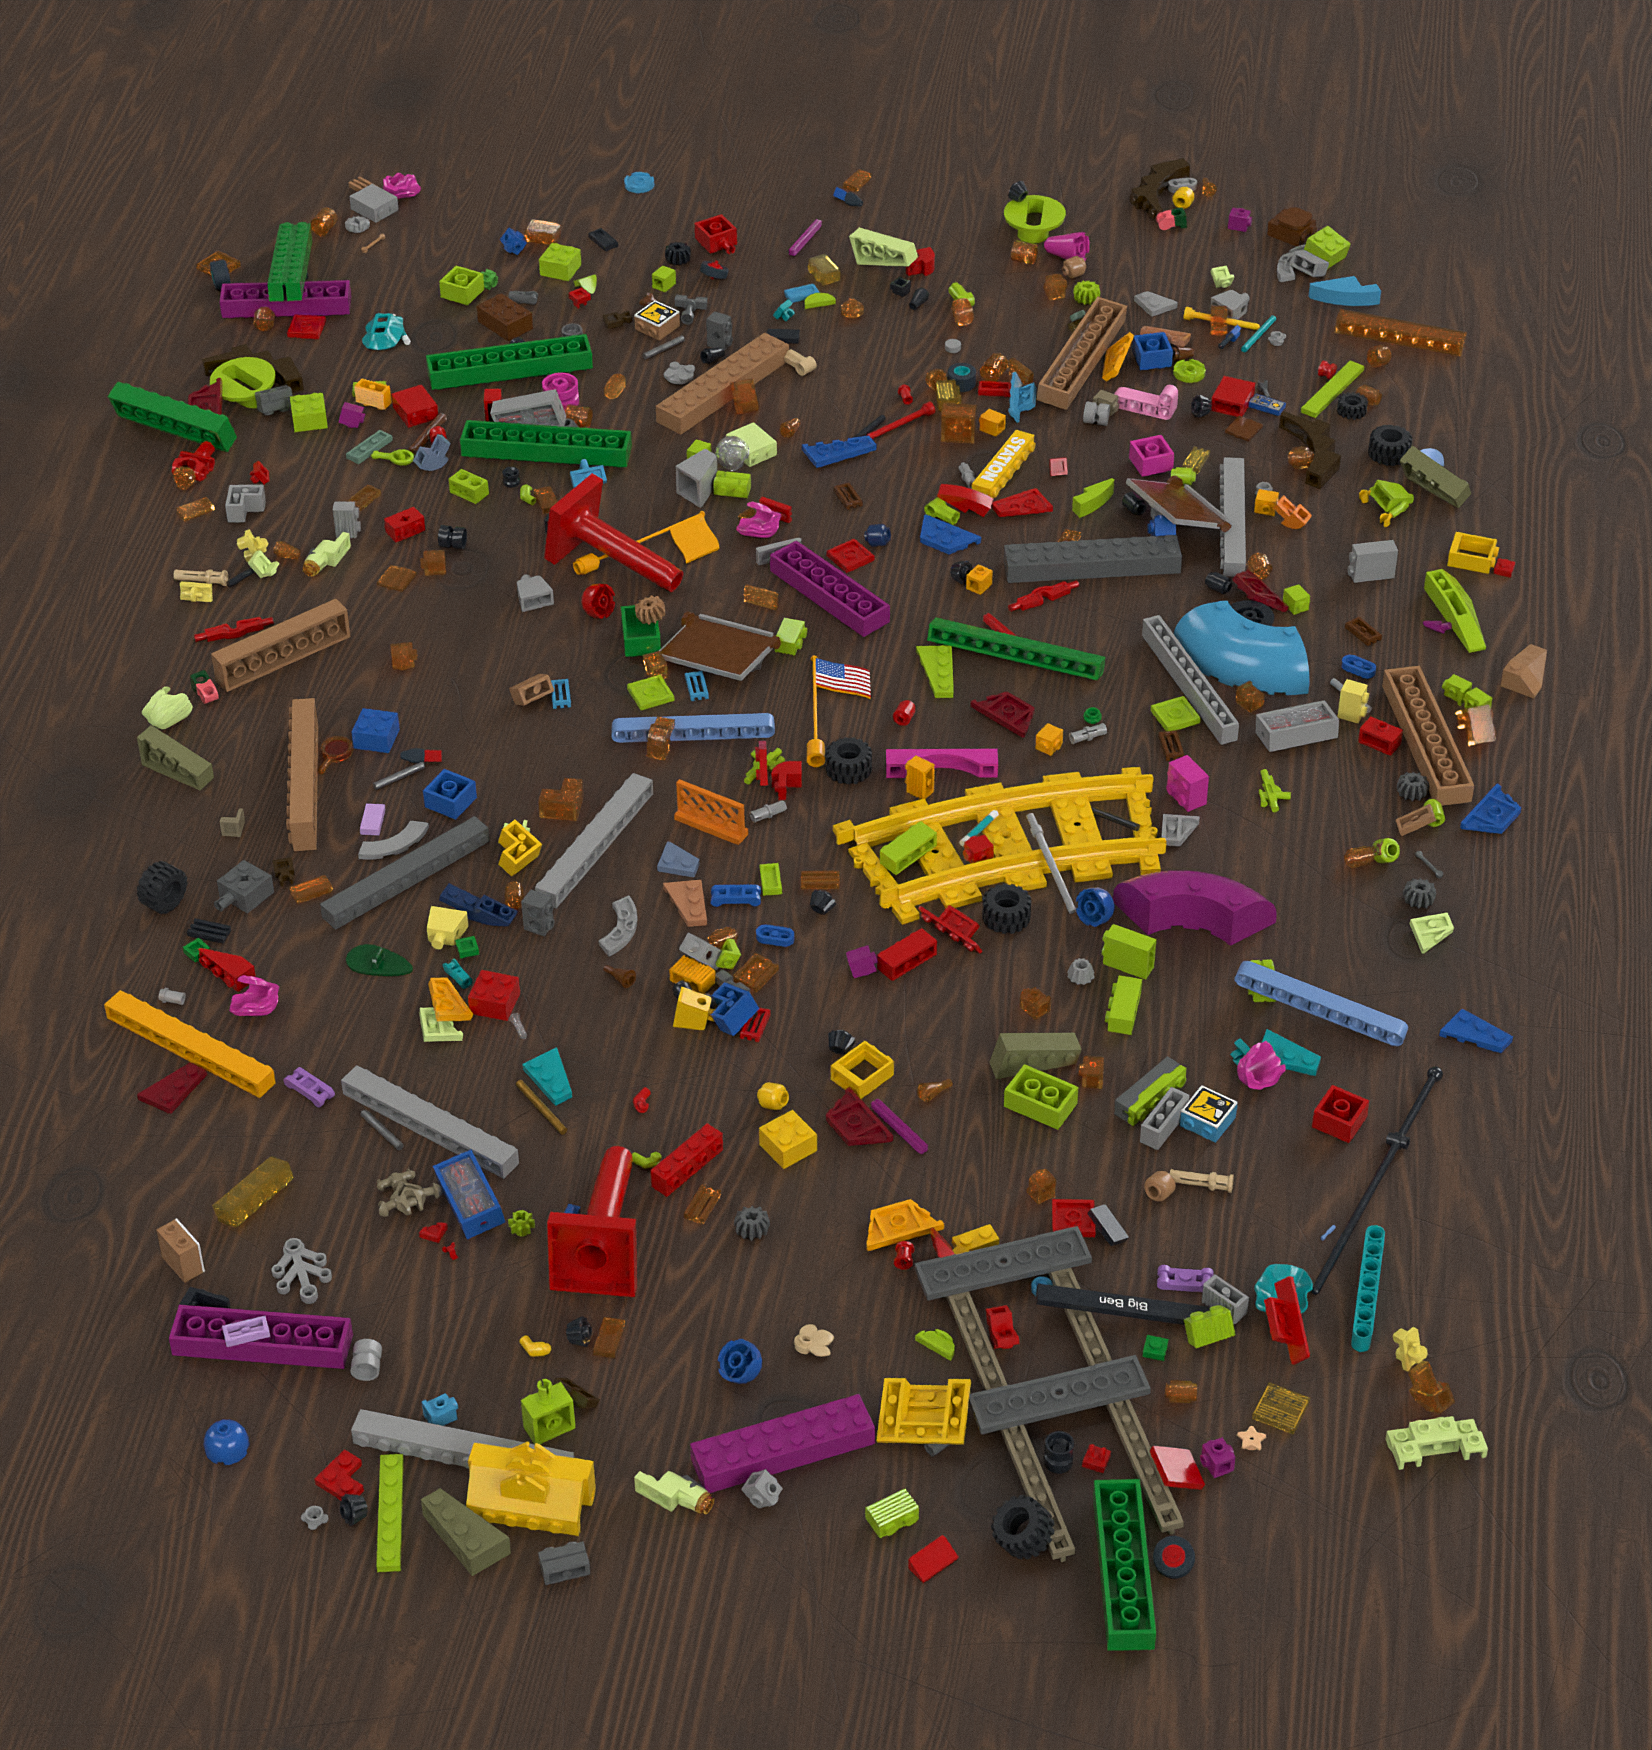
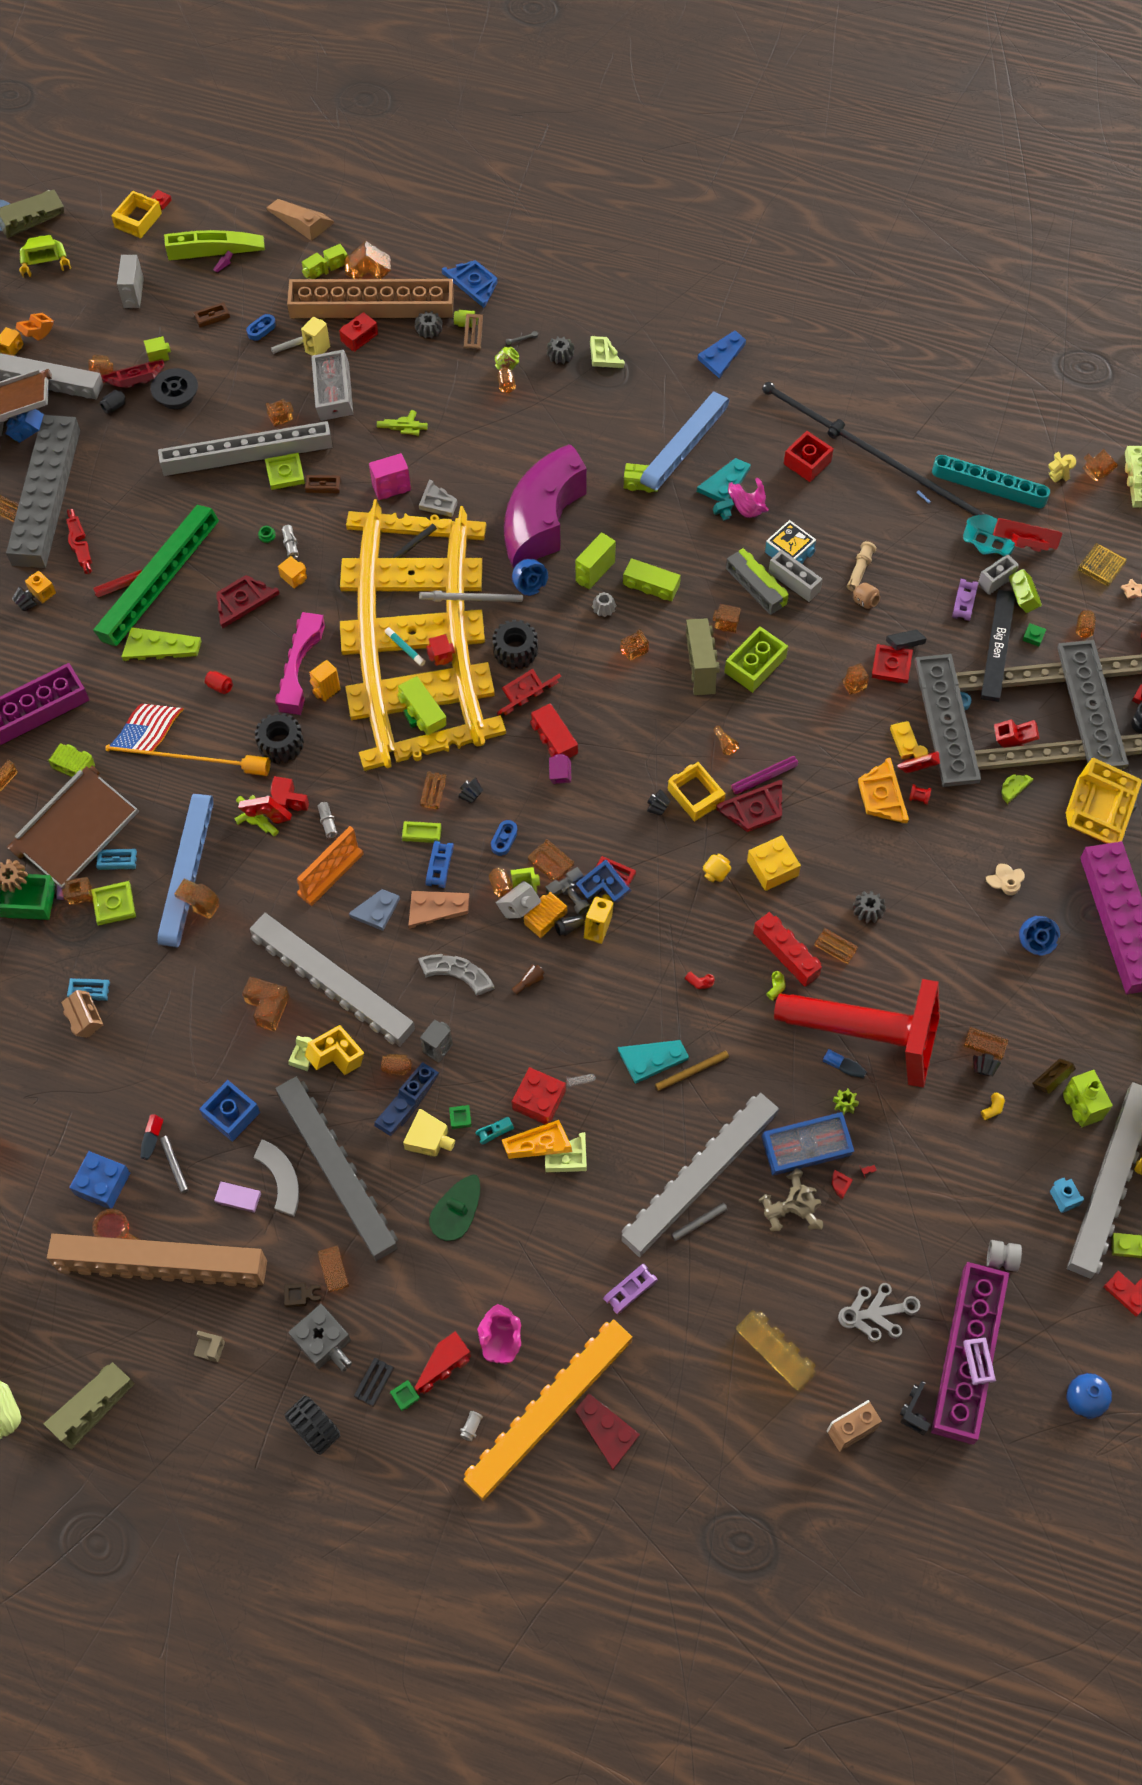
camera: 80 degrees left, 20 degrees up
(1244, 650) = (226, 398): dark azure brick -> none

